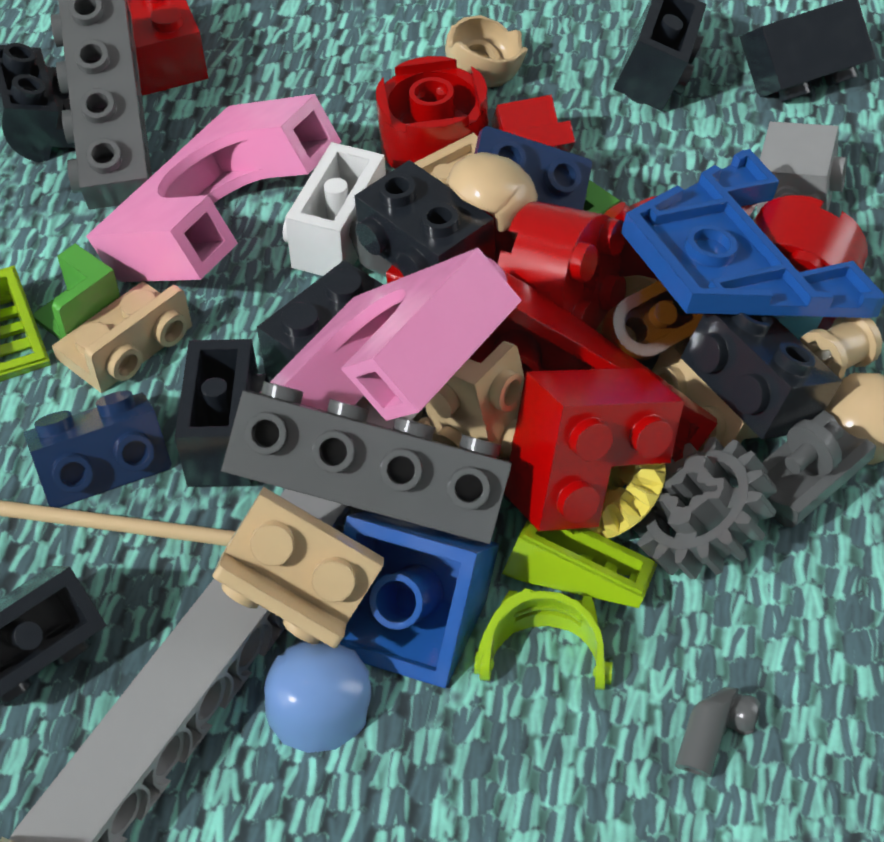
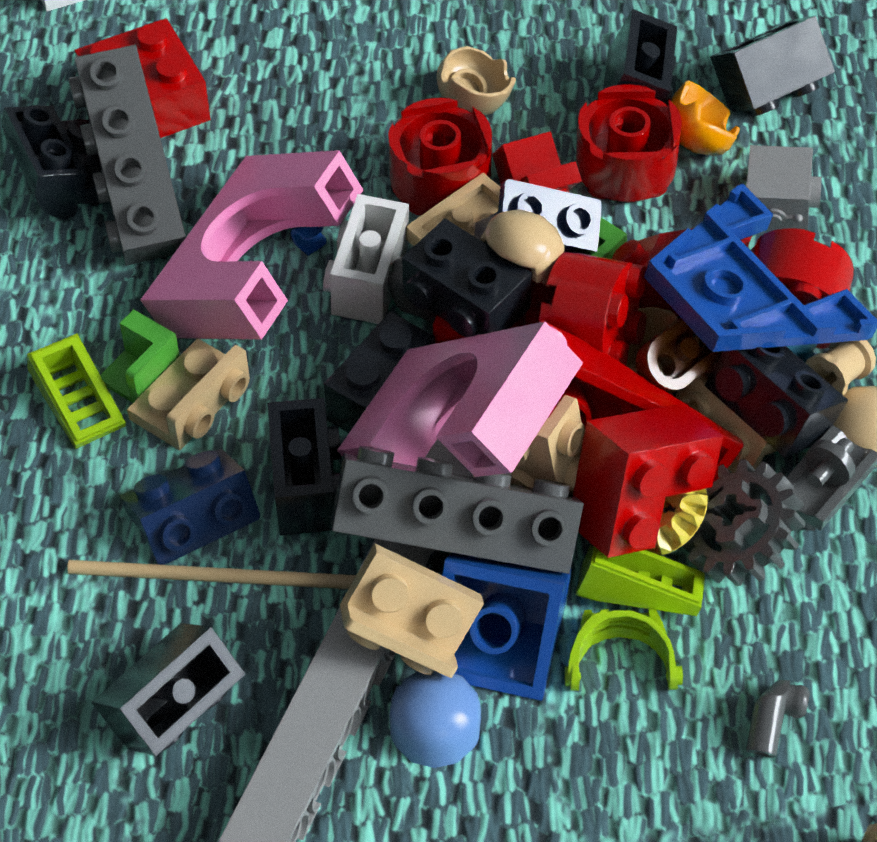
camera: 10 degrees left, 5 degrees up
(282, 191) = (308, 238): none -> blue hand
(637, 116) = (628, 144): none -> red brick
(720, 99) = (703, 121): none -> light orange hair

